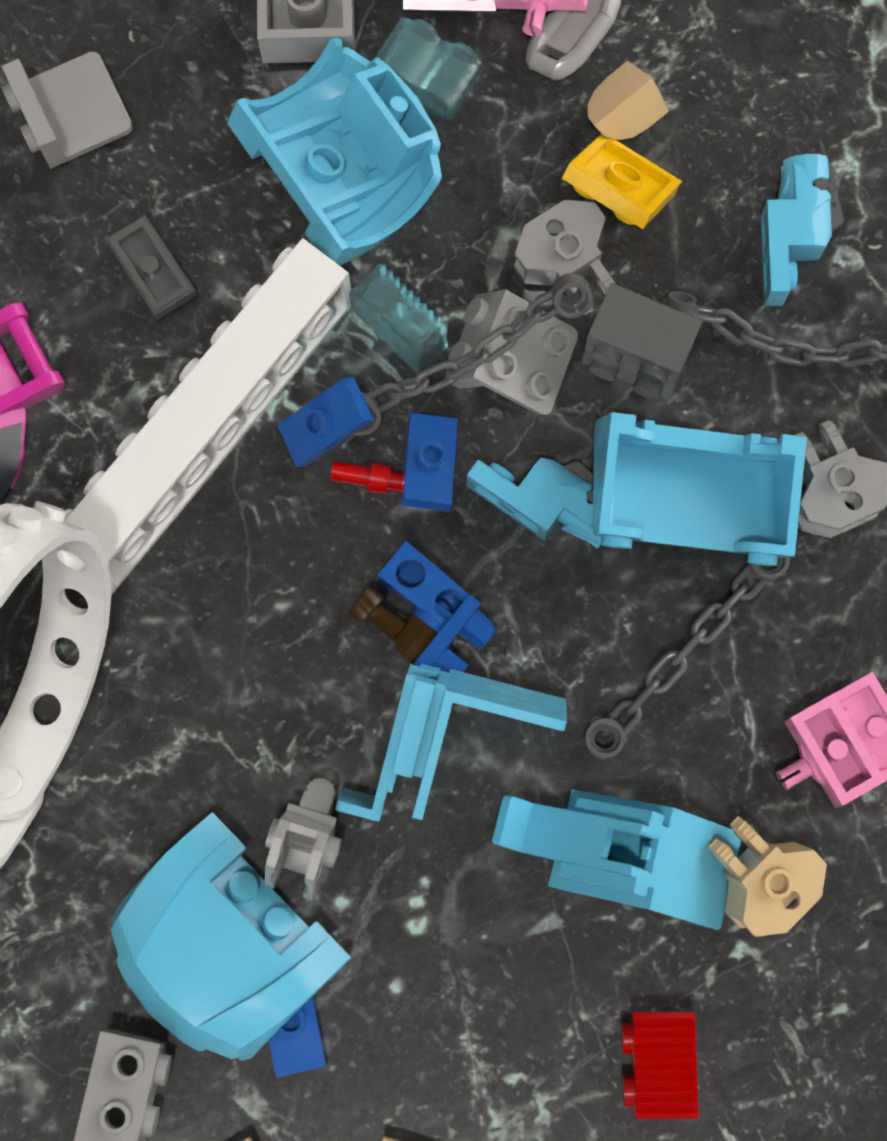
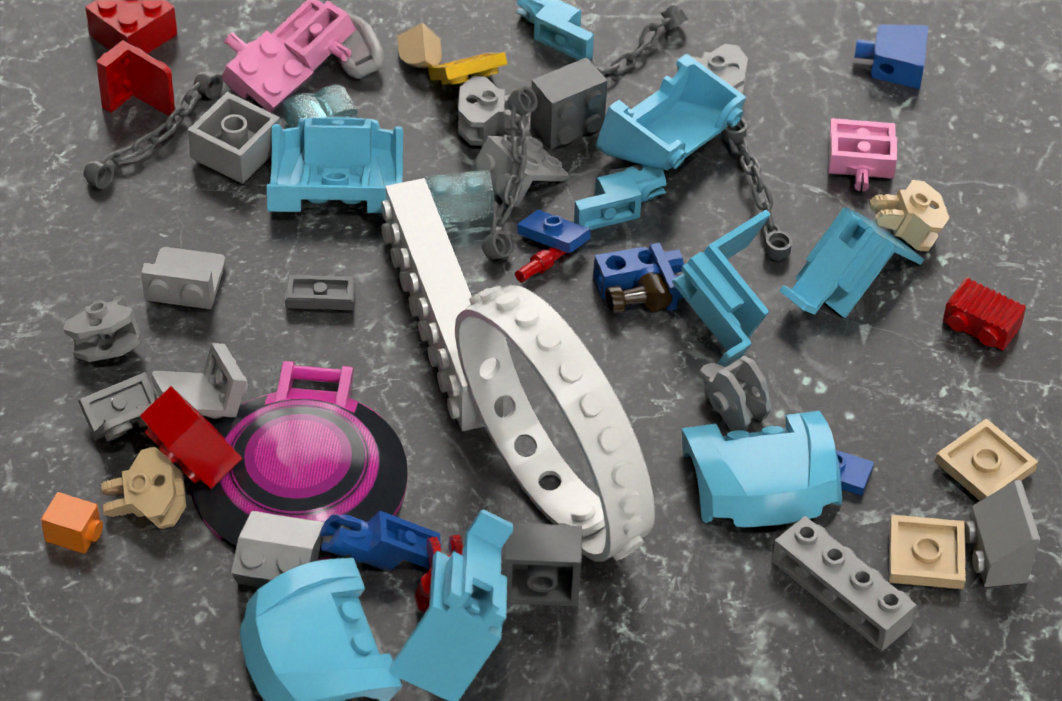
camera: 60 degrees left, 30 degrees down
(325, 422) = (491, 256): blue plate -> none

